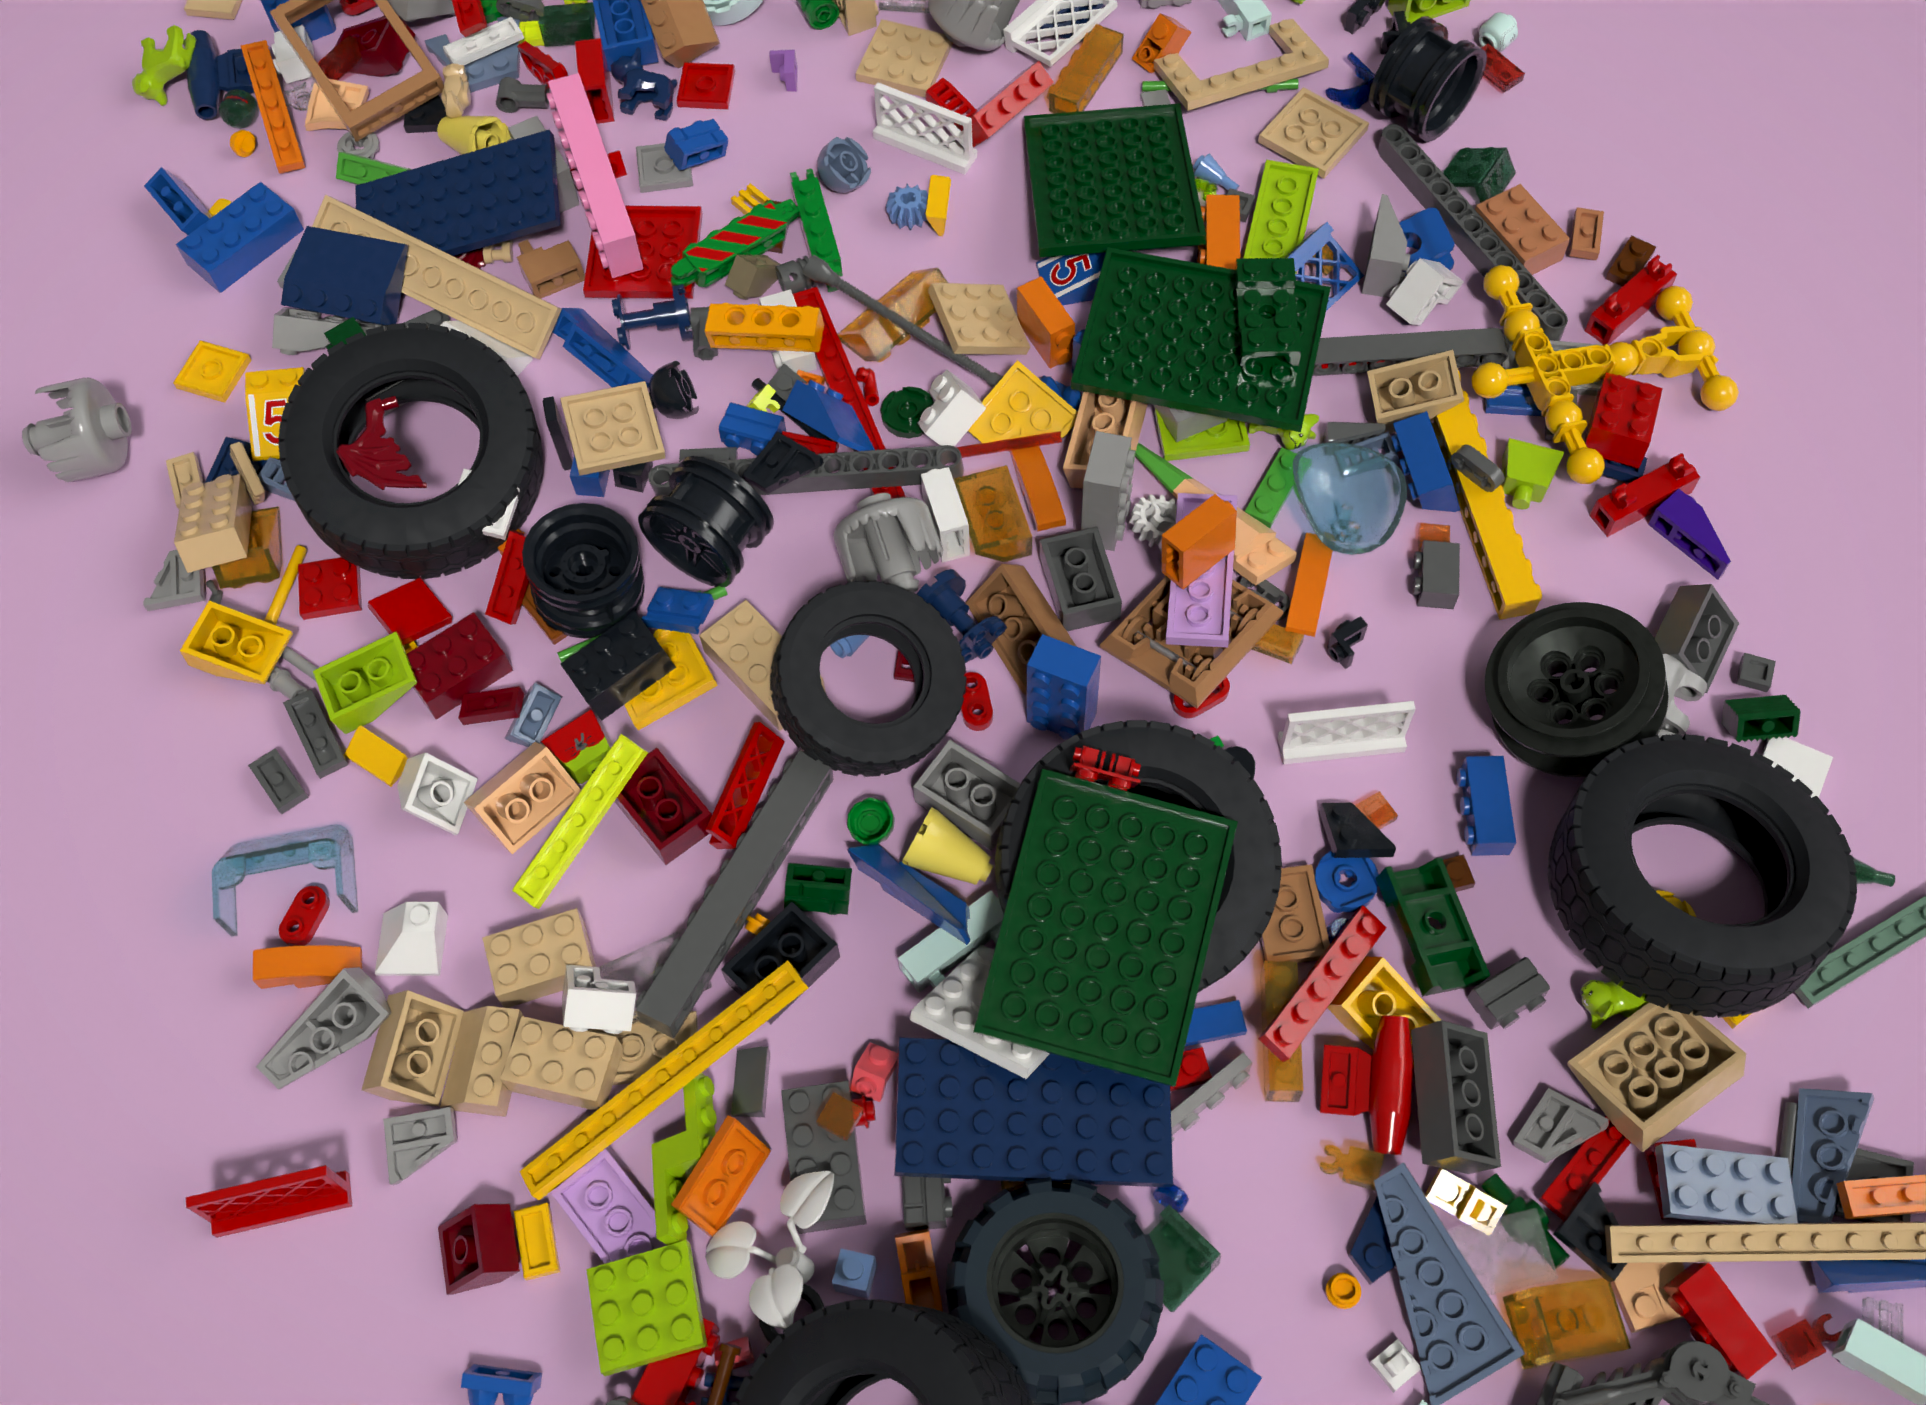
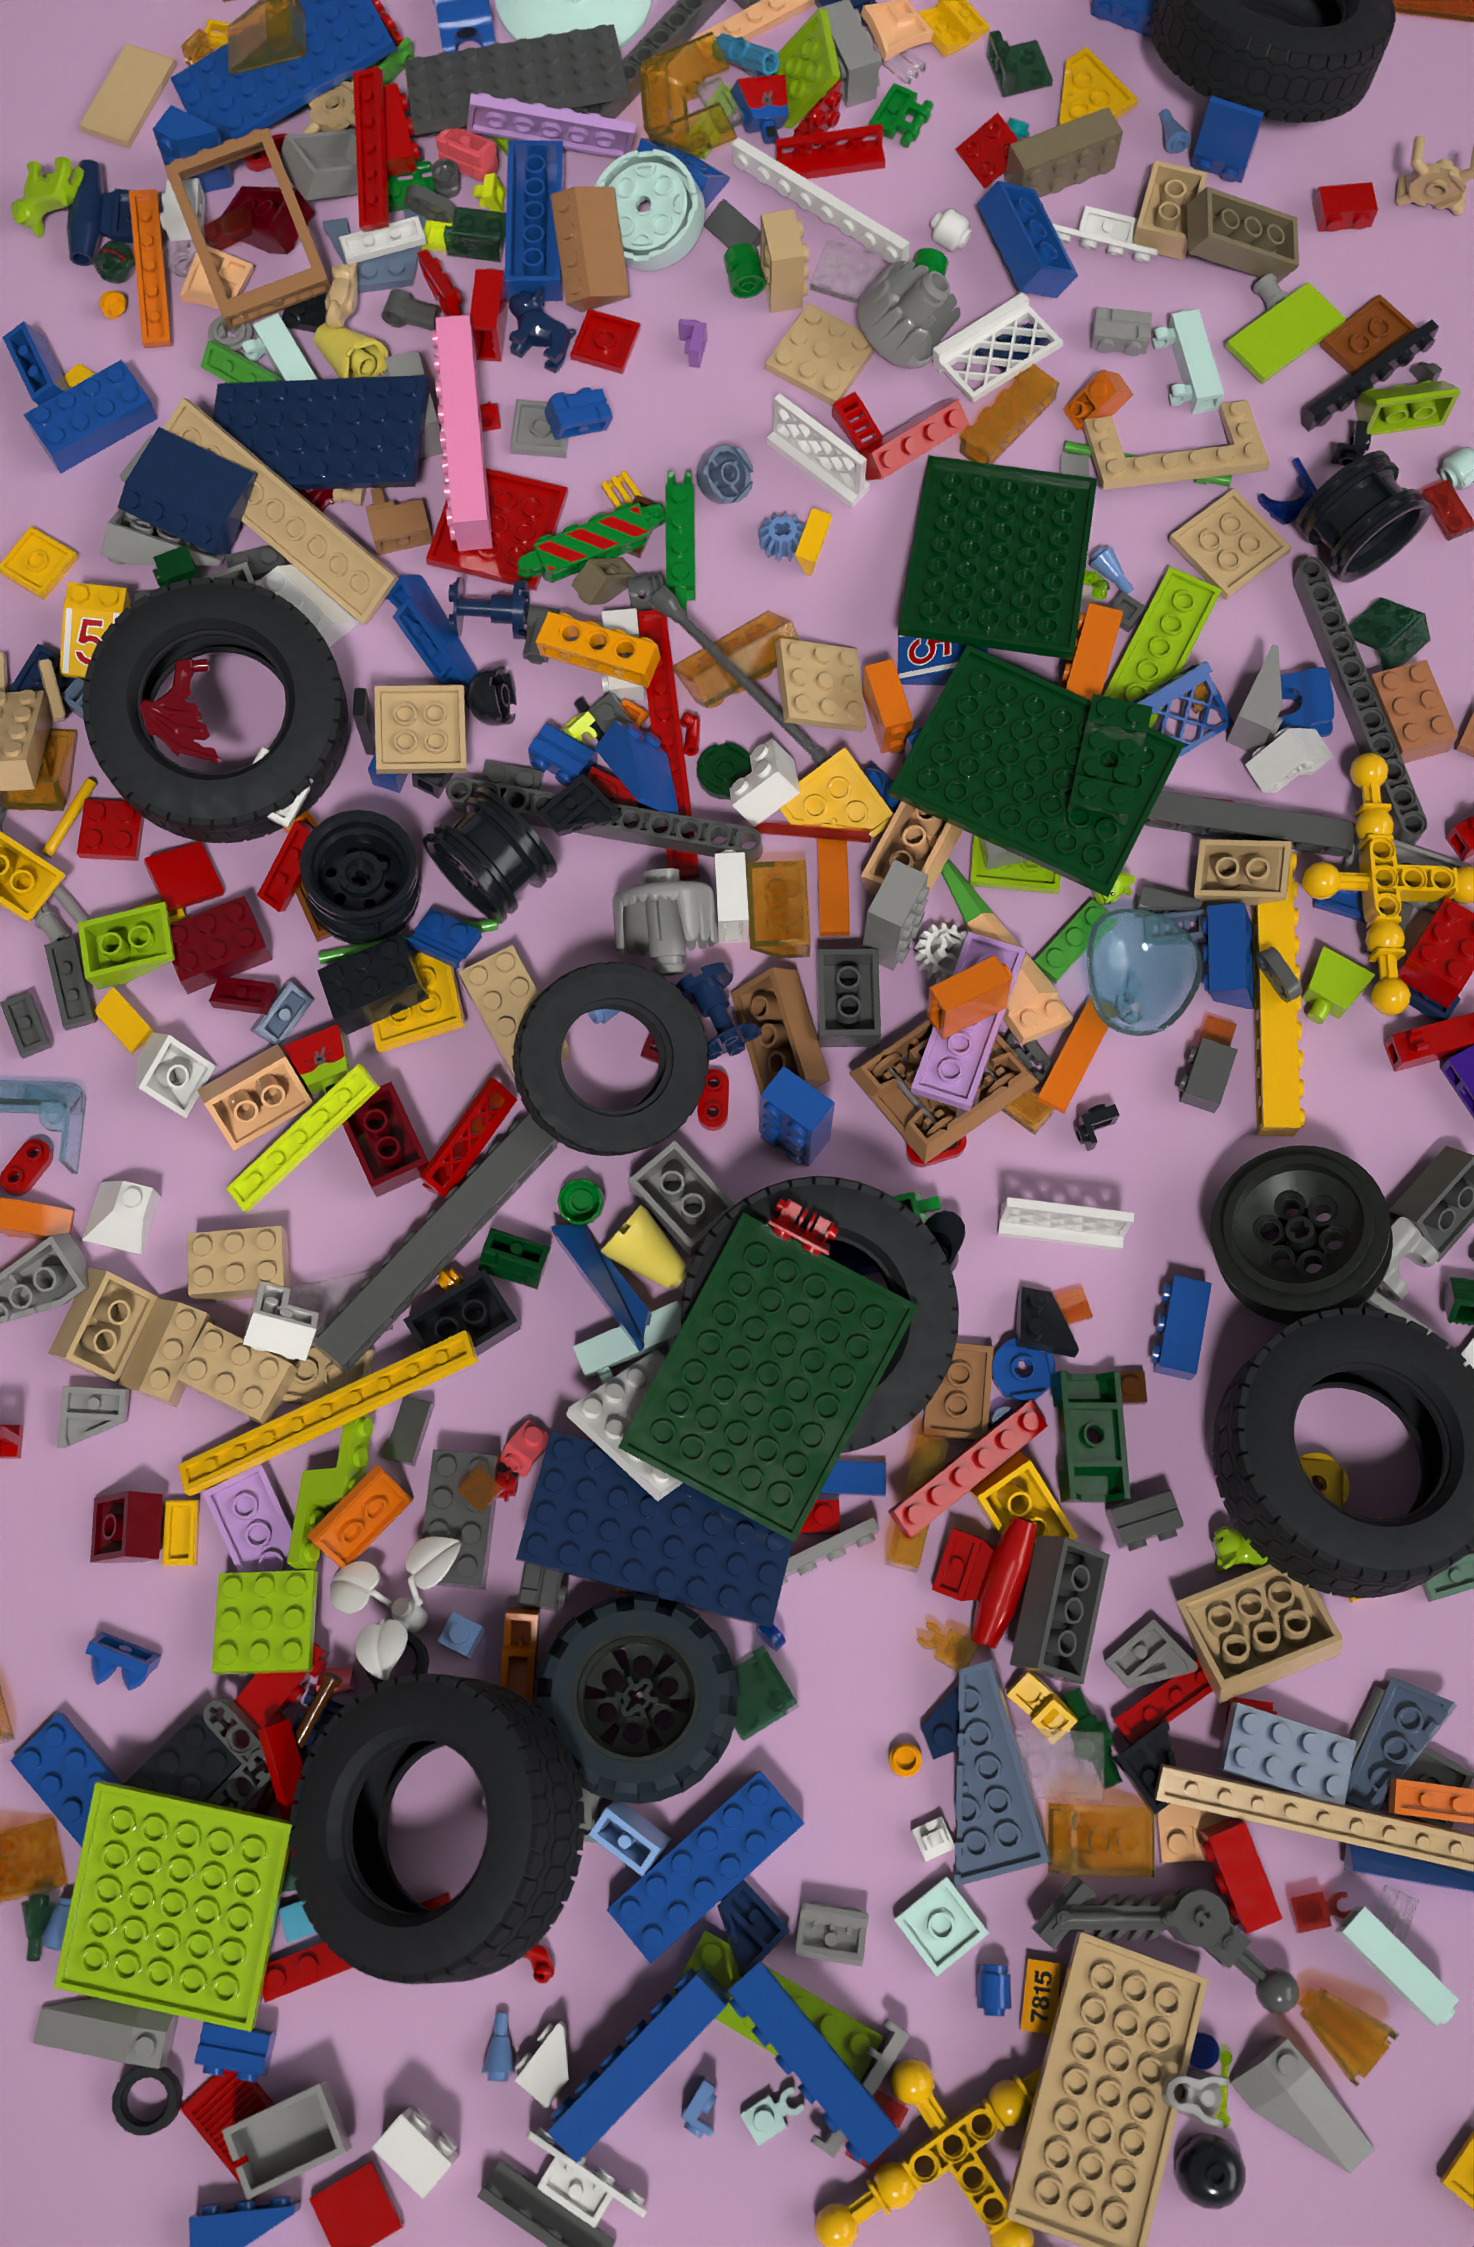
camera: 10 degrees right, 10 degrees up
(404, 145) = (280, 349): none -> light aqua brick

